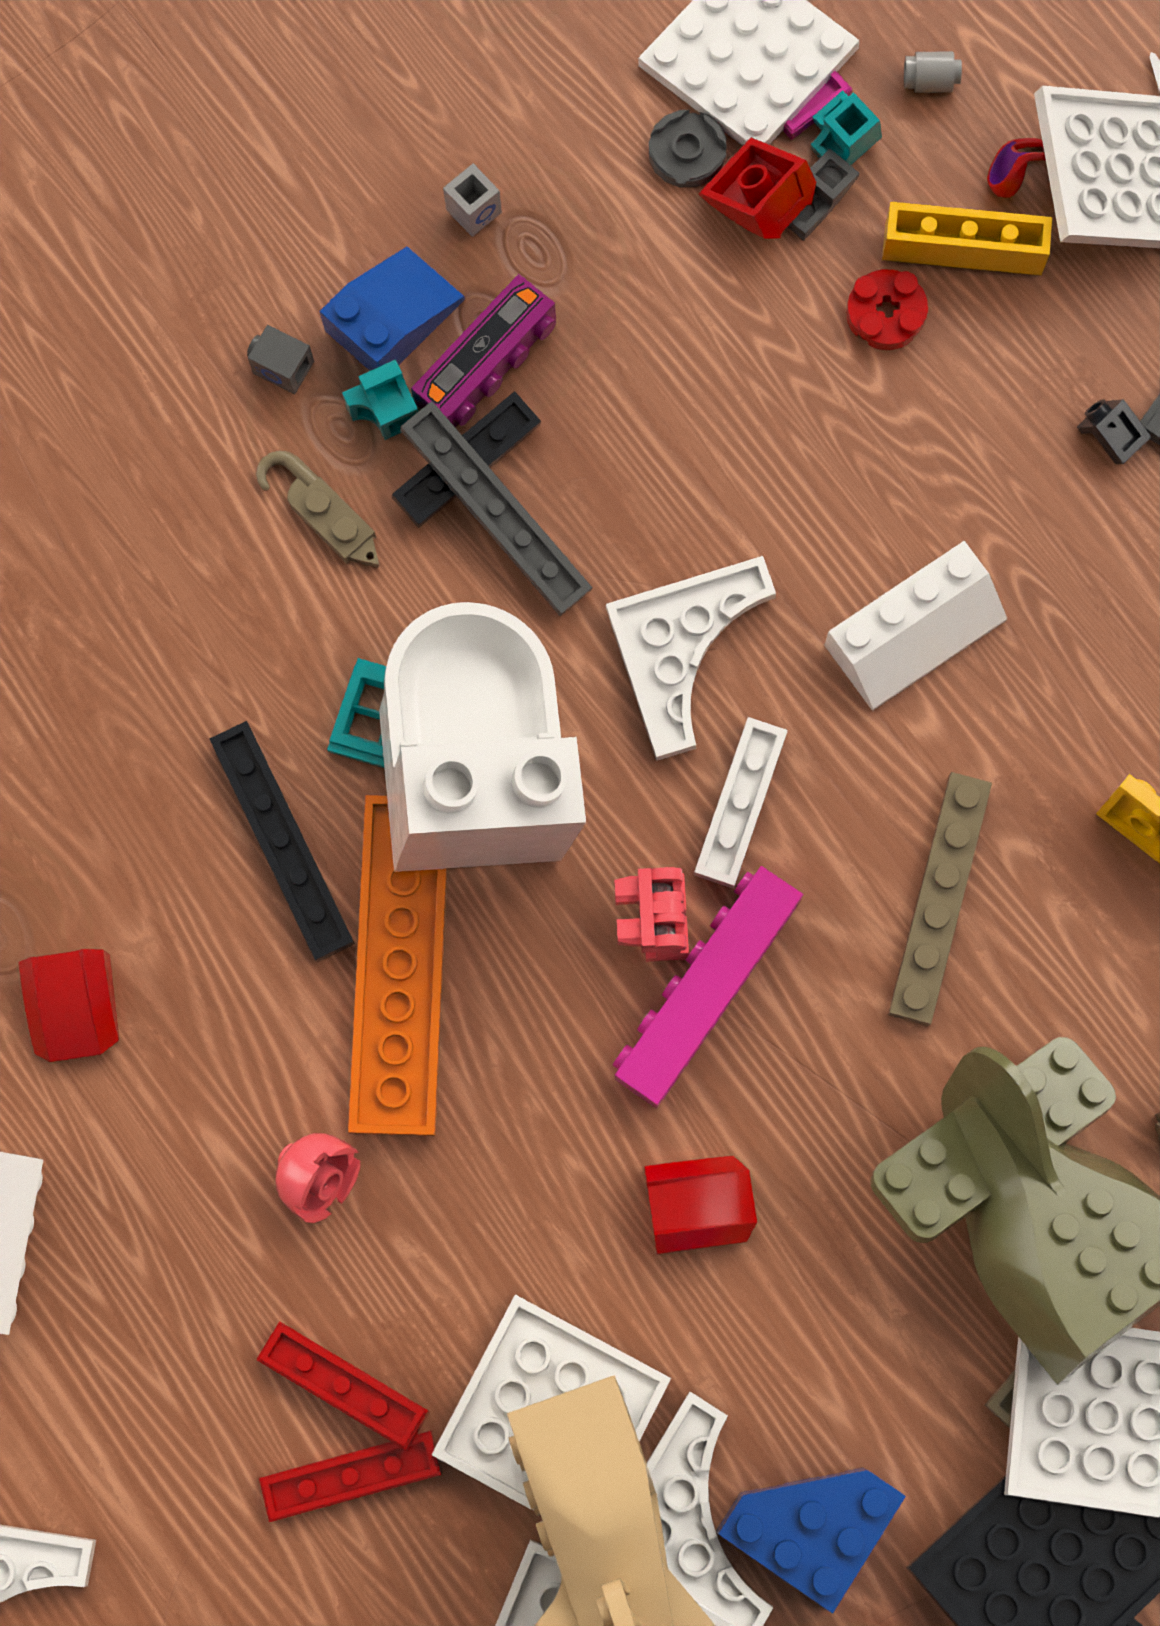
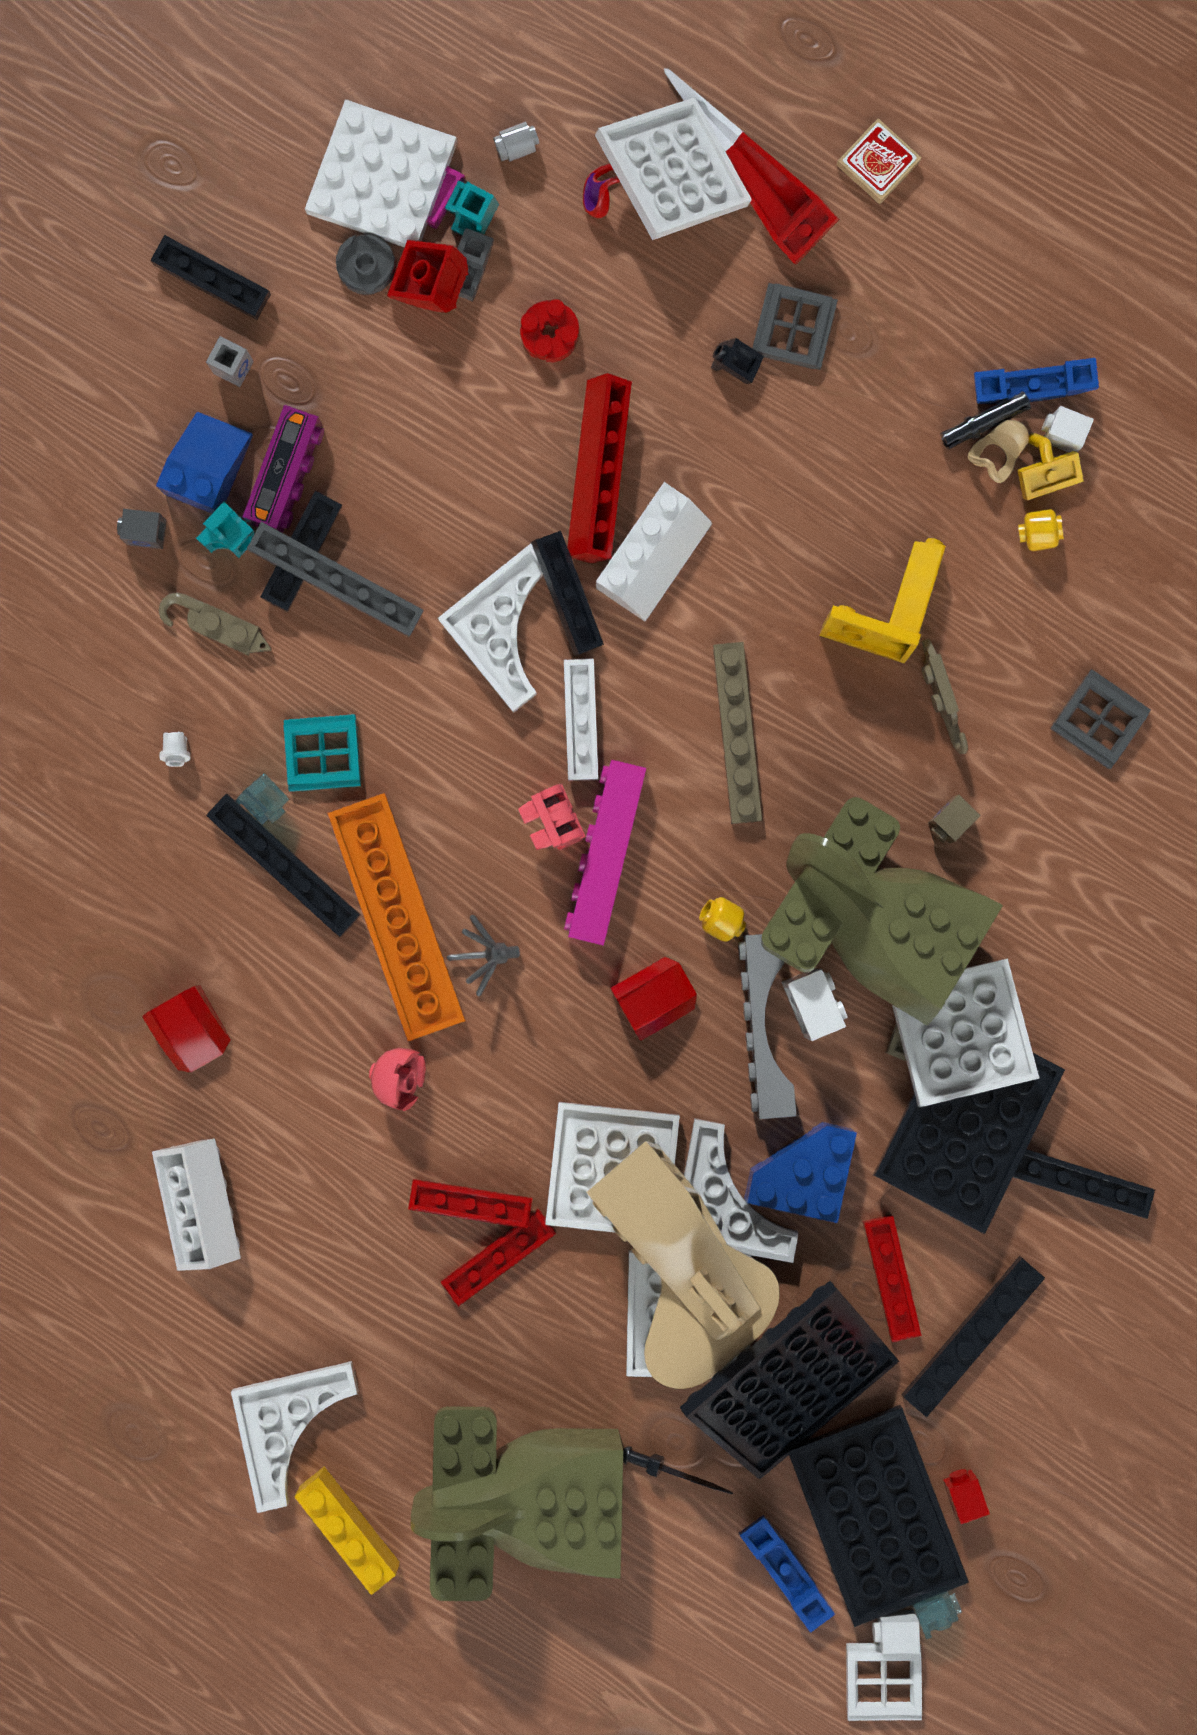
camera: 25 degrees left, 10 degrees up
(205, 642) = (174, 749): none -> white hose
(291, 747) = (266, 791): none -> clear light blue brick
(476, 745) = (387, 751): white piece -> none
(490, 96) = (210, 277): none -> black plate
(508, 1061) = (494, 953): none -> dark grey plant
(785, 634) = (567, 593): none -> black plate
(812, 1393) = (773, 1091): none -> light grey arch
(829, 1134) = (722, 919): none -> yellow head
(885, 496) = (599, 468): none -> red brick
(913, 1294) = (815, 1004): none -> white brick
(967, 238) = (586, 259): yellow brick -> none

